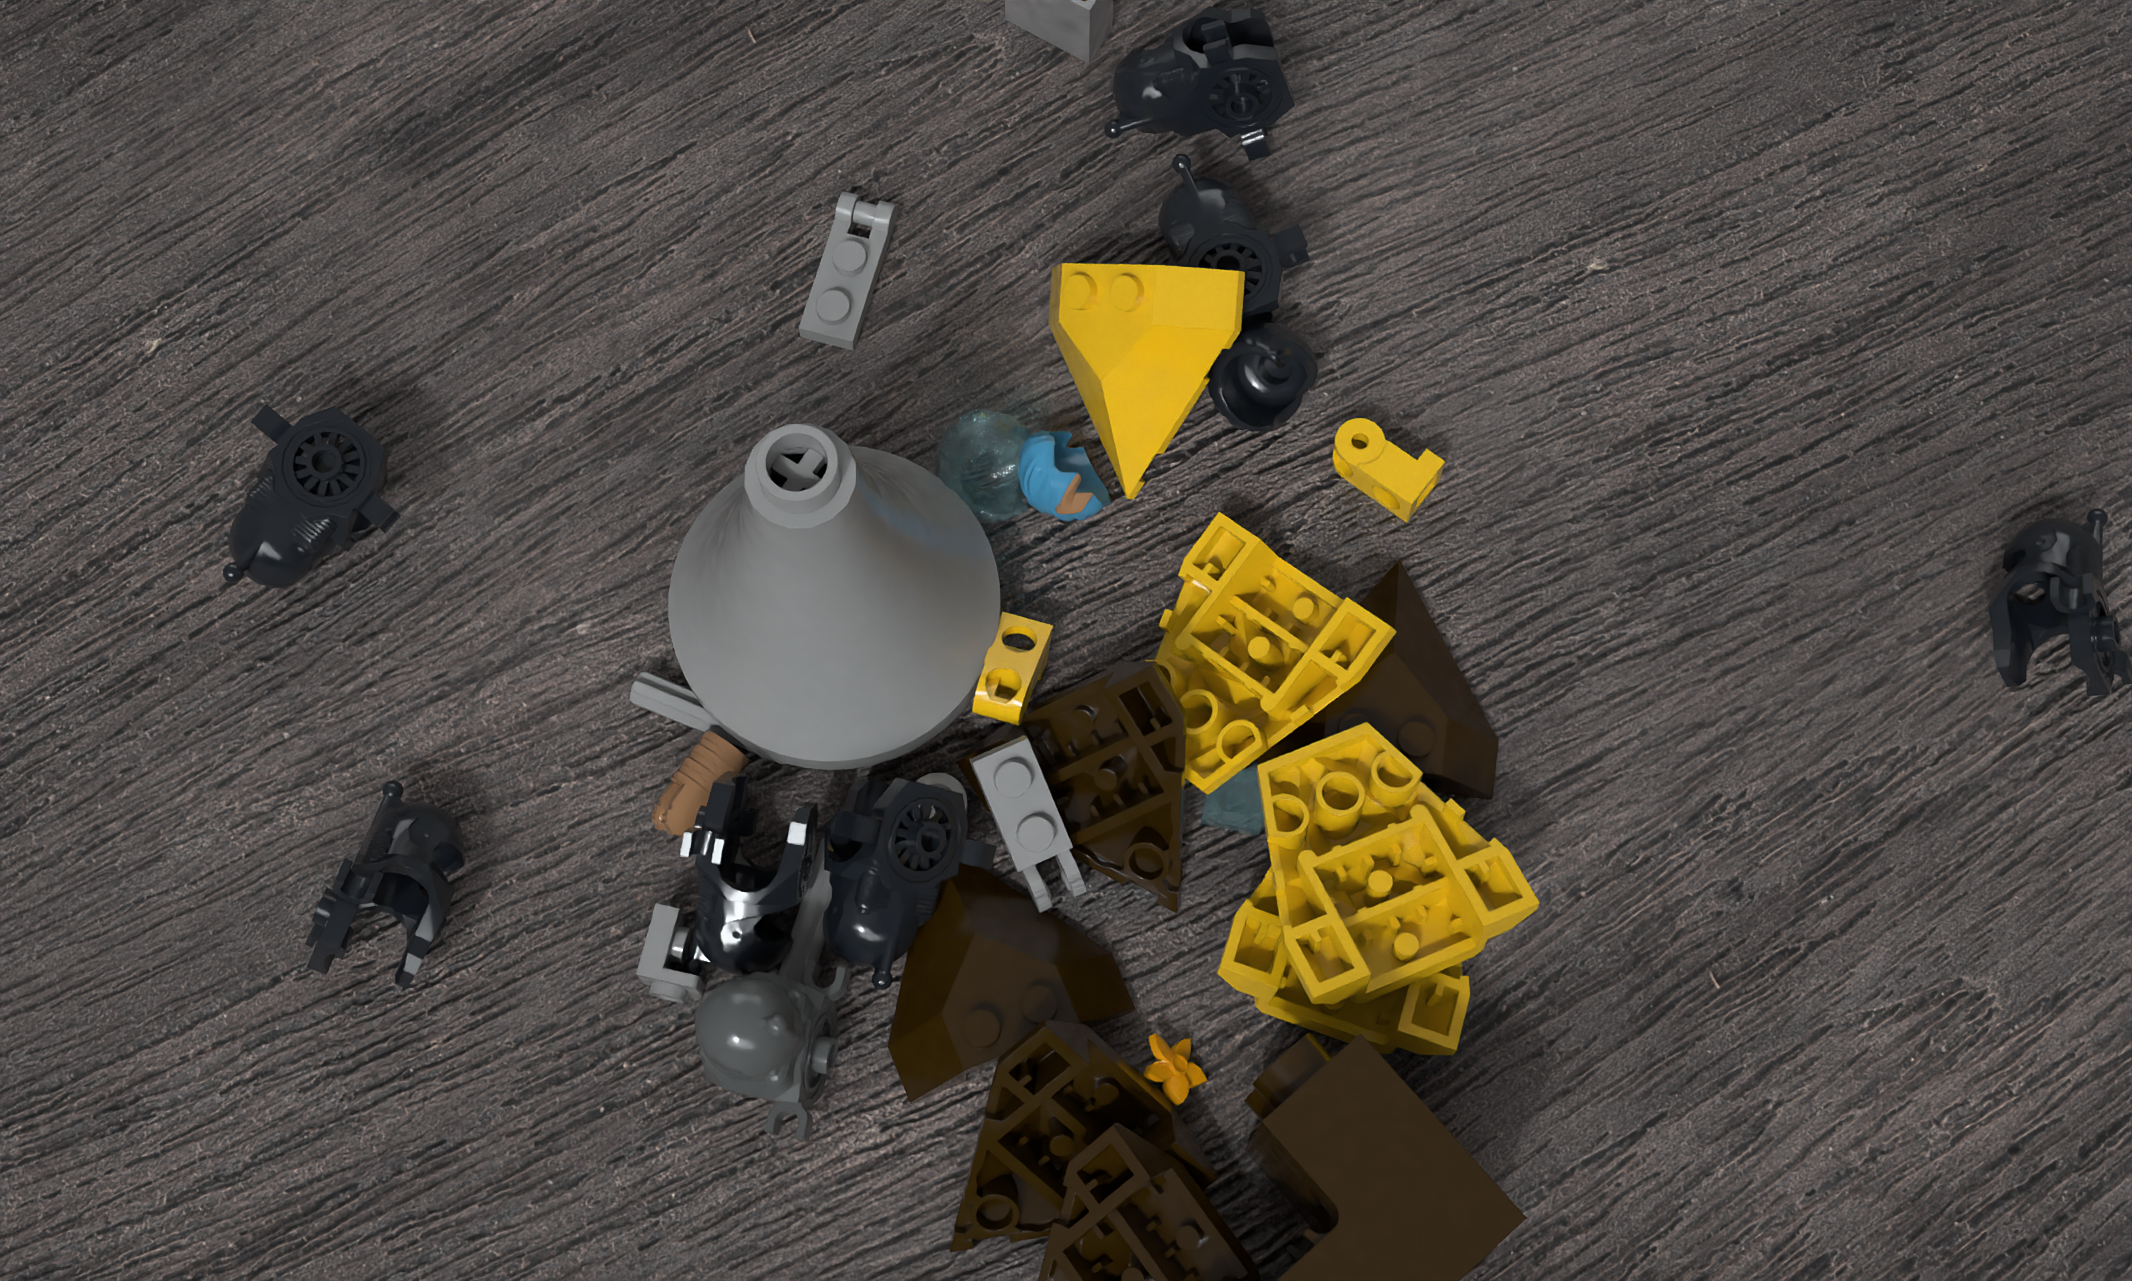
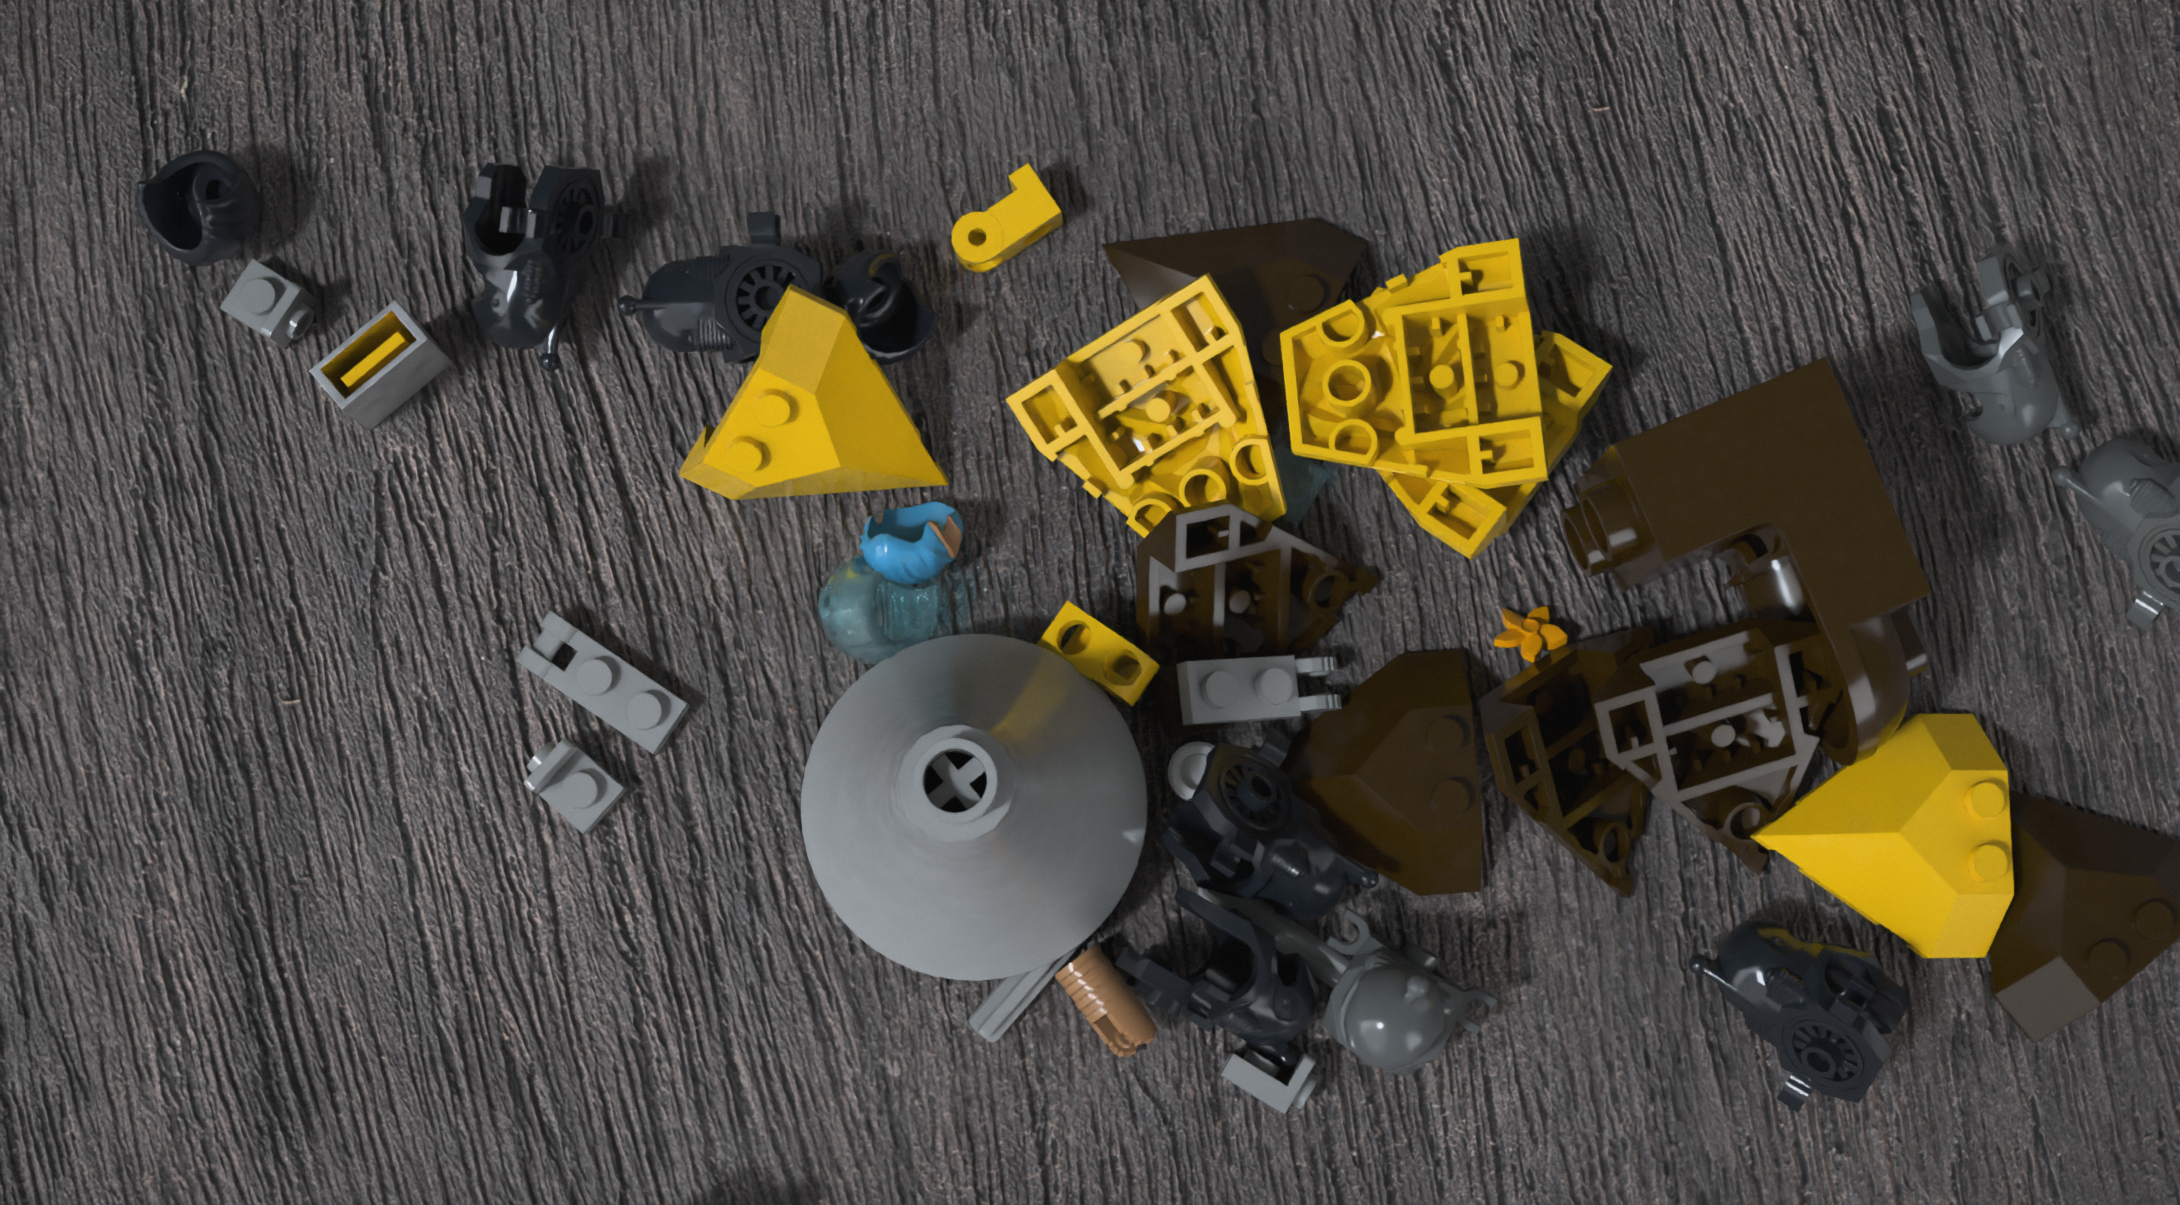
camera: 70 degrees left, 10 degrees up
(751, 273) = (573, 784): none -> light grey bracket

